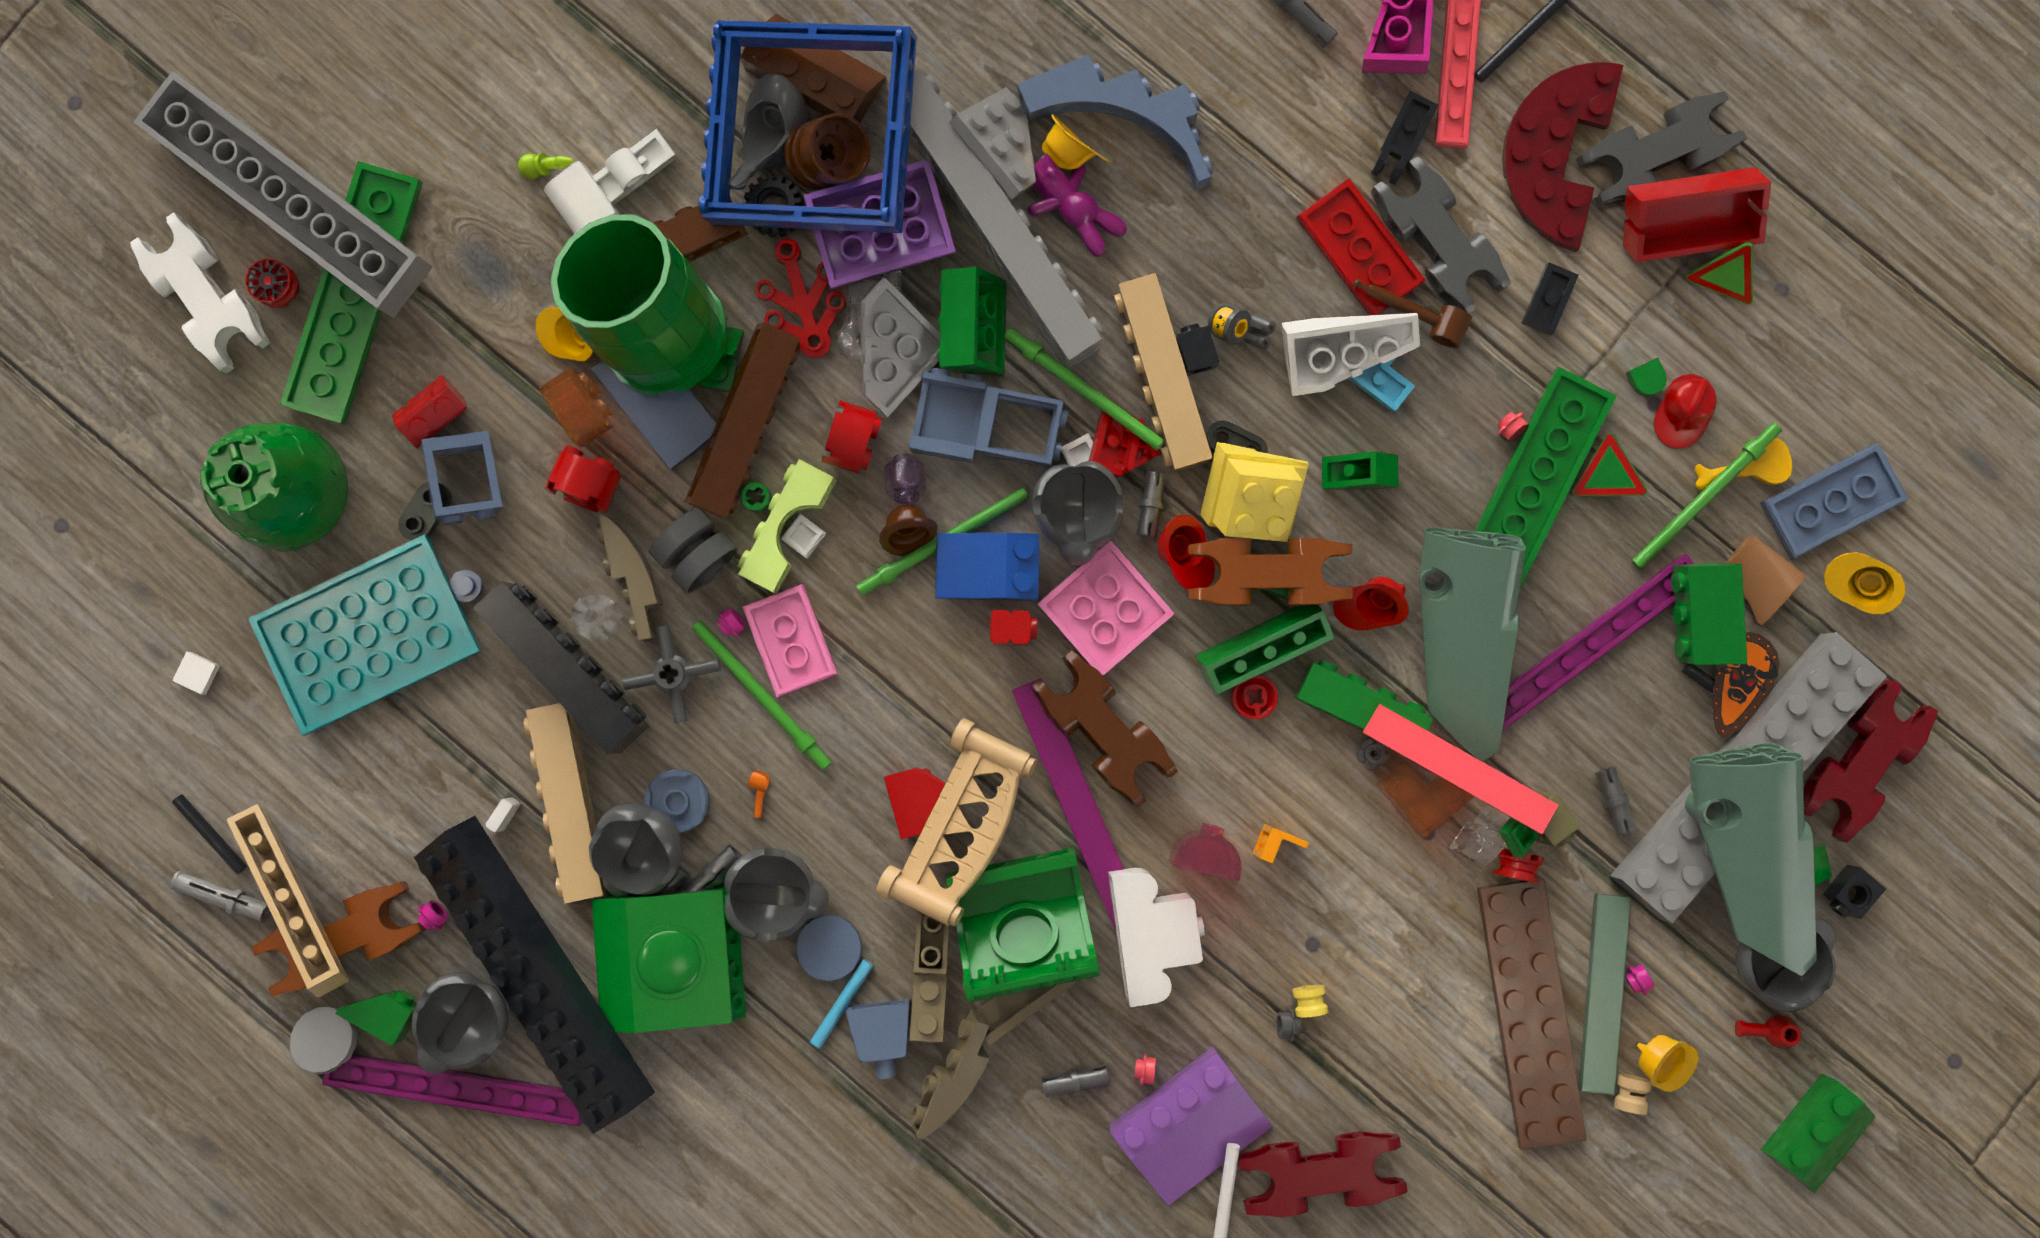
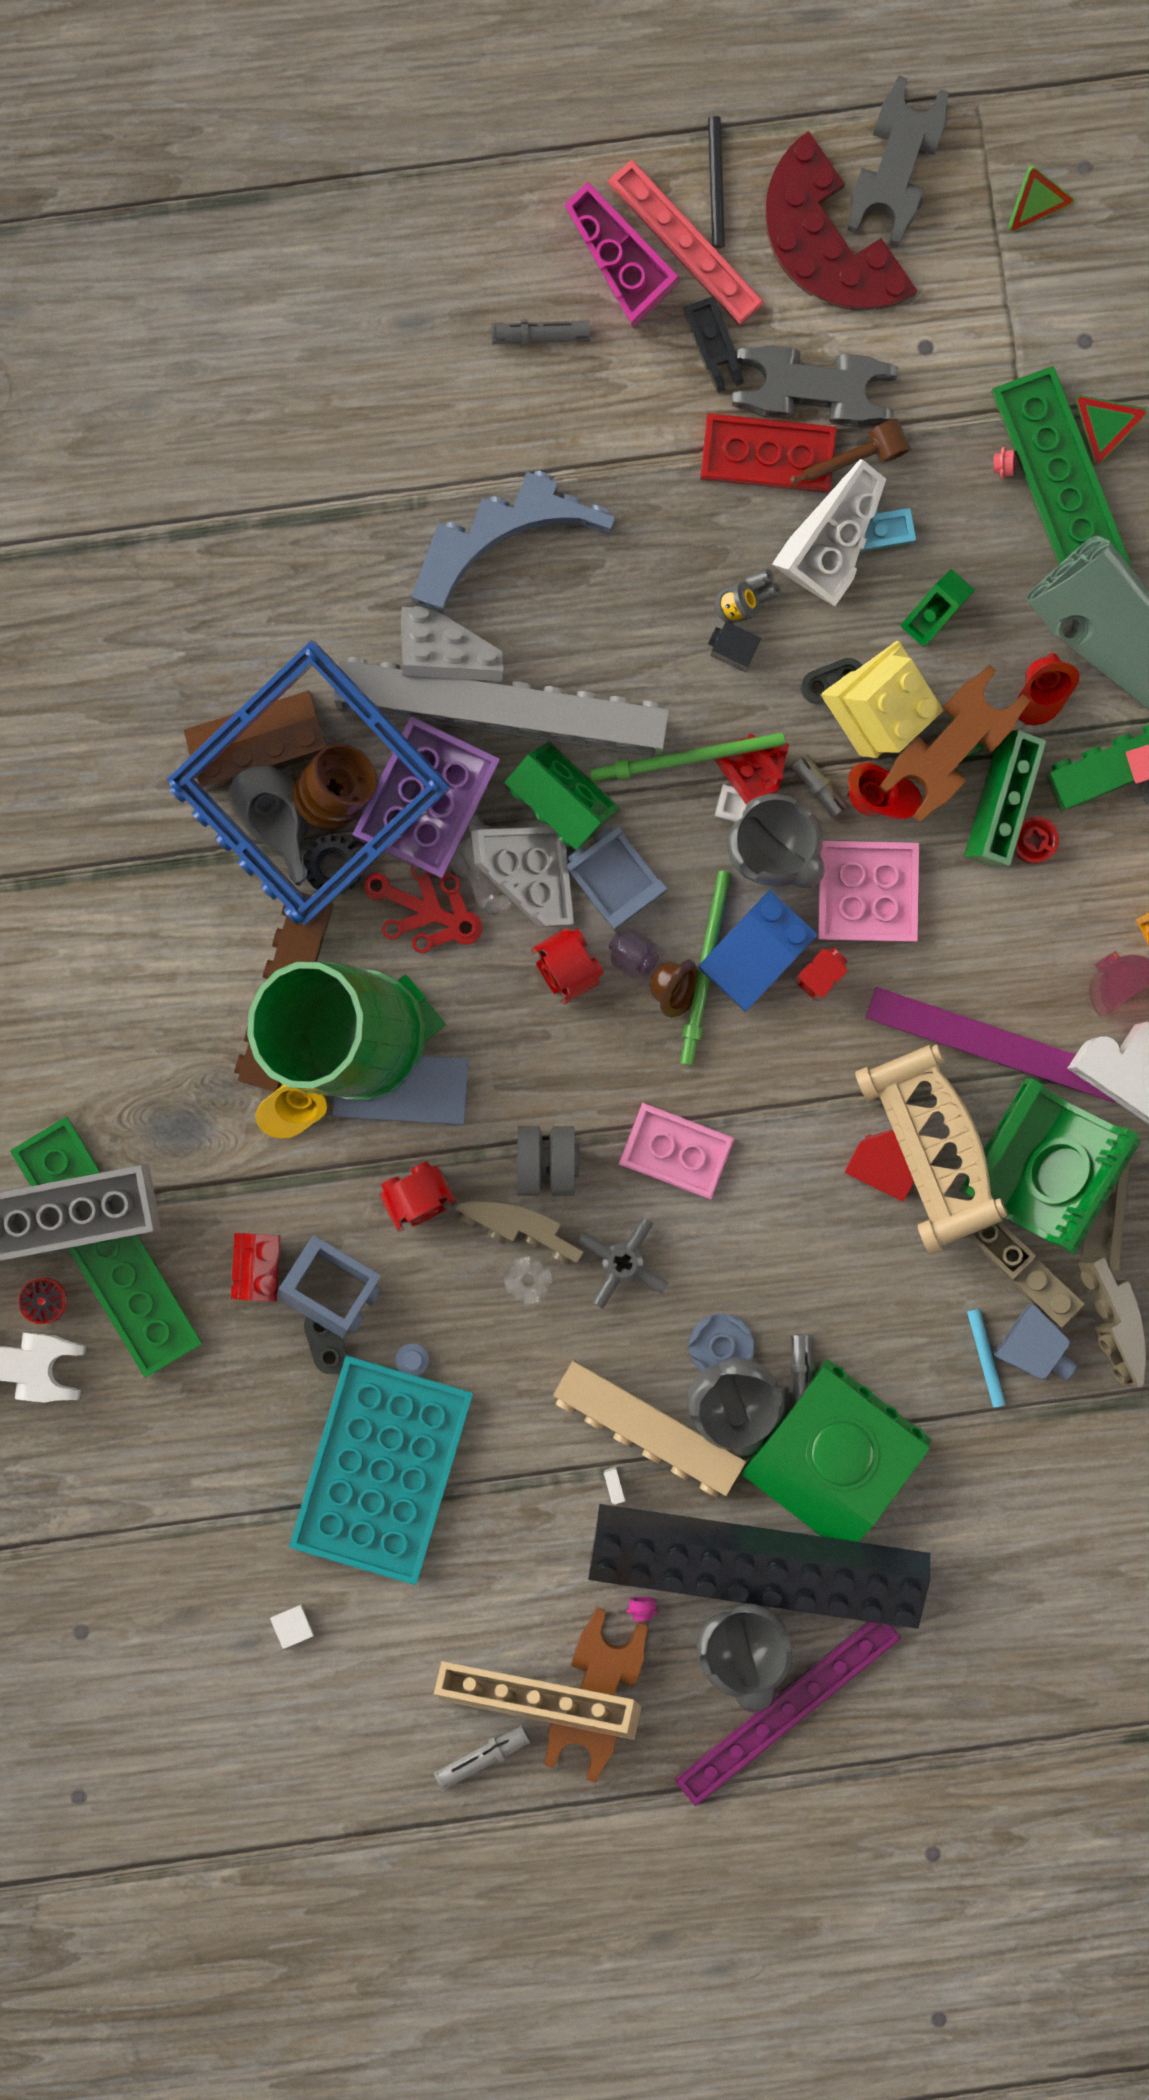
camera: 60 degrees left, 0 degrees up
(209, 834) = (425, 1725): black bar -> none
(291, 489) = (232, 1415): green piece -> none
(322, 1040) = (663, 1774): light grey tile -> none
(383, 1015) = (684, 1711): green slope -> none
(533, 166) = (132, 1020): lime bar -> none
(562, 667) = (545, 1339): black brick -> none
(577, 406) = (359, 1149): clear orange brick -> none
(587, 197) = (200, 1002): white plate -> none
(731, 622) = (623, 1183): dark pink plate -> none
(742, 420) = (478, 1035): reddish brown brick -> none
(757, 507) = (552, 1083): green bush -> none
(760, 782) = (763, 1269): orange hand -> none
(771, 894) = (860, 1333): dark grey piece -> none
(803, 536) = (606, 1069): white tile -> none
(803, 741) = (763, 1209): bright green bar -> none
(804, 489) = (603, 1115): yellowish green arch -> none
(829, 947) = (935, 1329): sand blue tile -> none
(984, 435) = (694, 799): sand blue window -> none
(1066, 147) = (493, 604): yellow piece -> none
(1075, 206) = (544, 638): magenta animal -> none
(1120, 747) = (978, 974): reddish brown piece -> none
(1163, 373) = (730, 687): tan brick -> none
(1549, 299) = (935, 347): black plate -> none
(1648, 378) = (1060, 329): green tile -> none
(1685, 411) = (1110, 323): red piece -> none
(1696, 214) = (972, 184): red piece -> none

